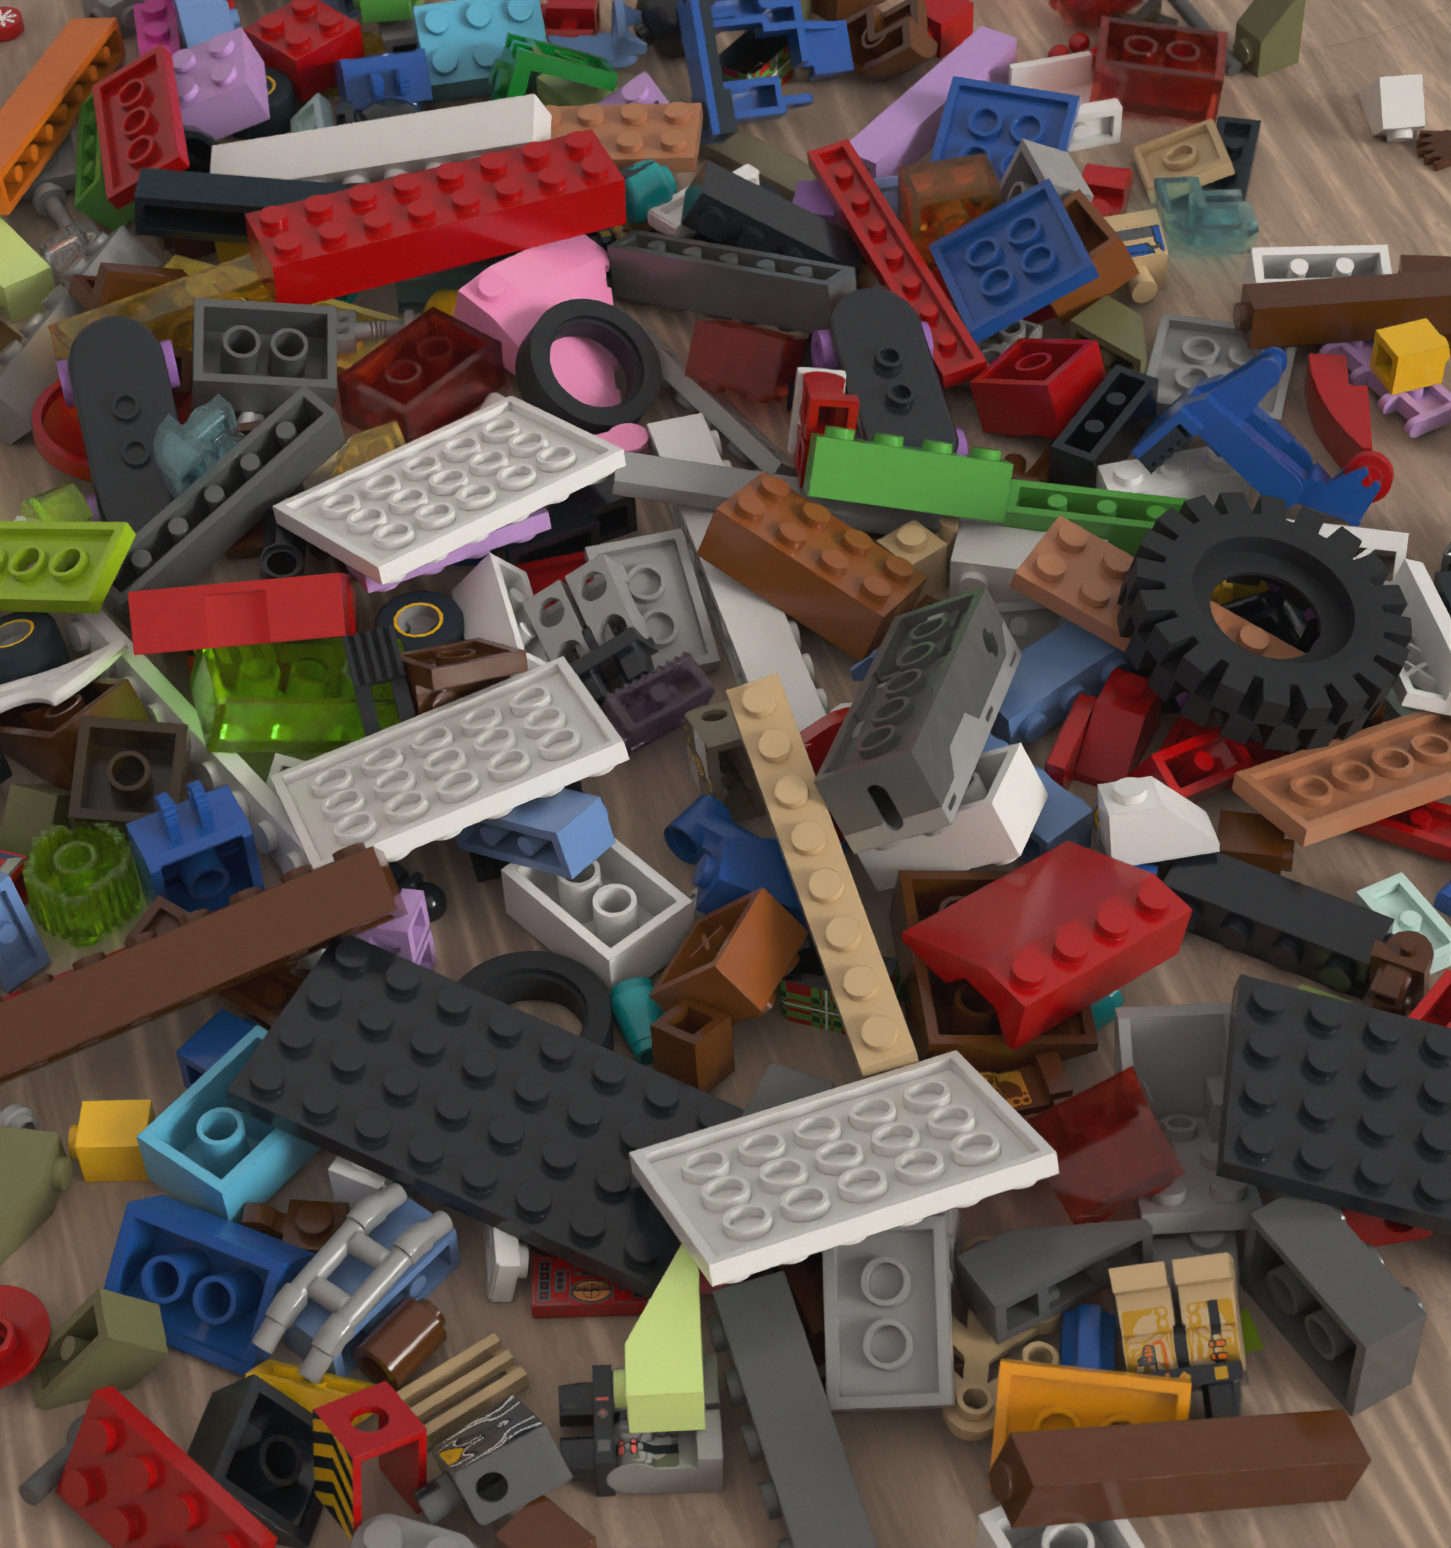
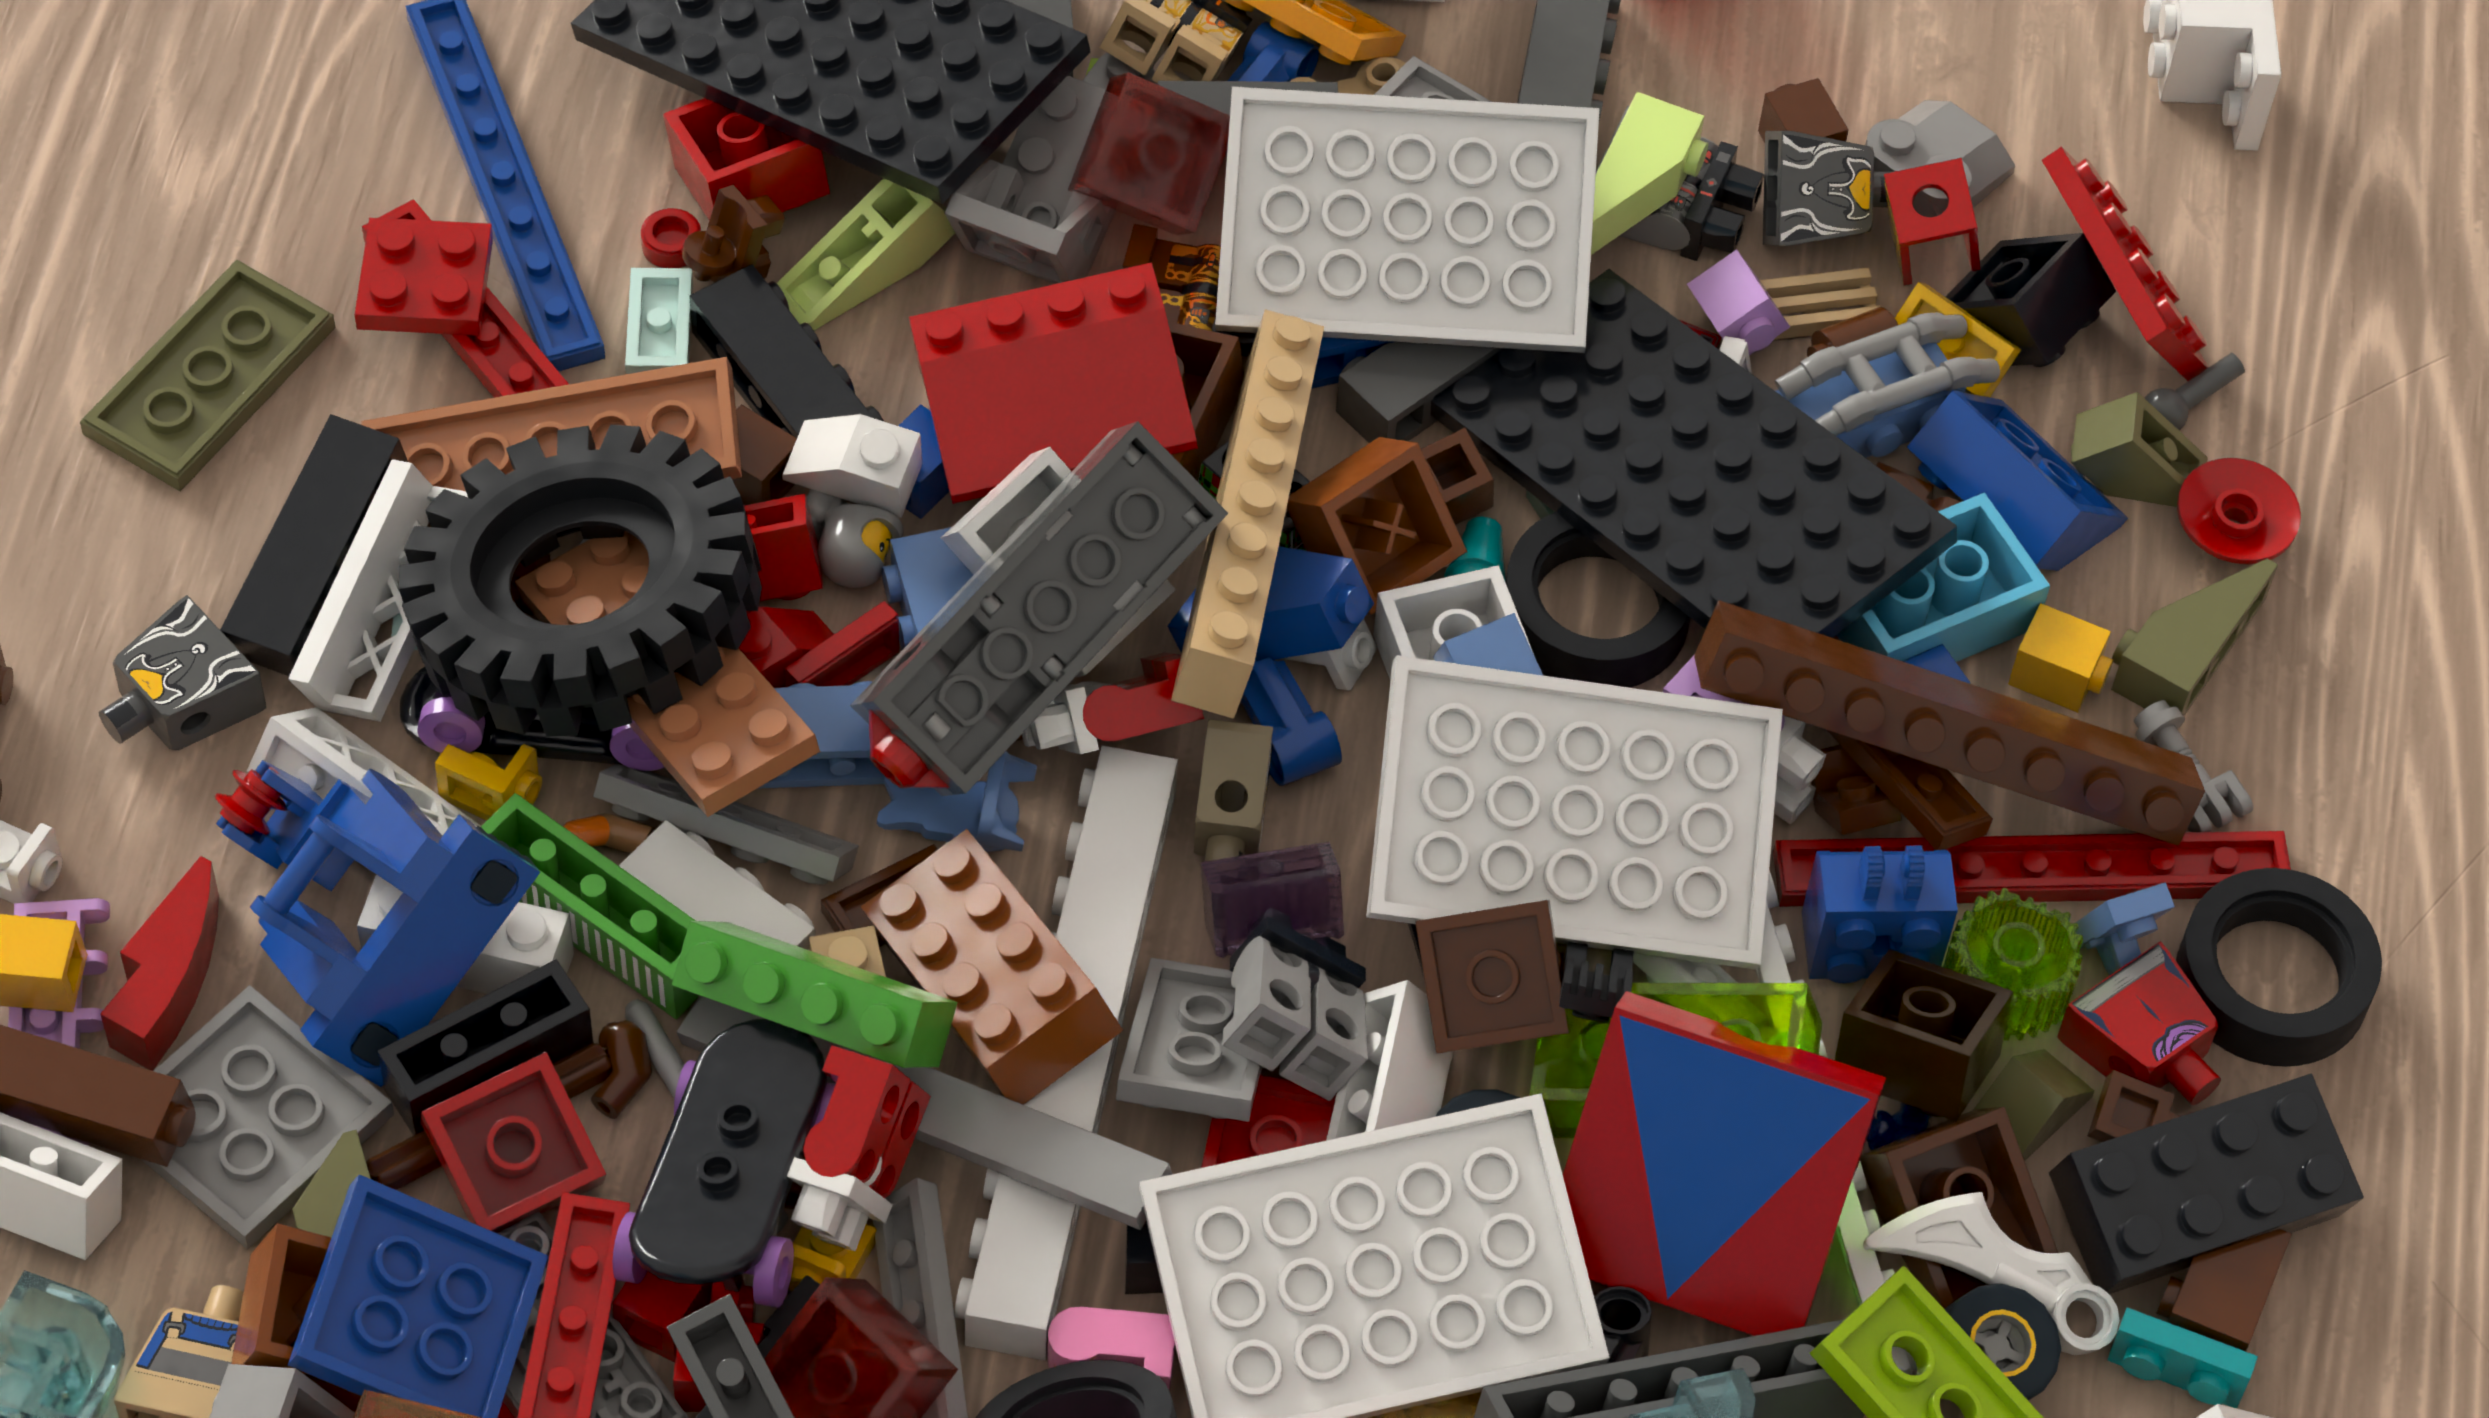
camera: 160 degrees left, 10 degrees up
(523, 1317) = (1738, 303): none -> lavender brick

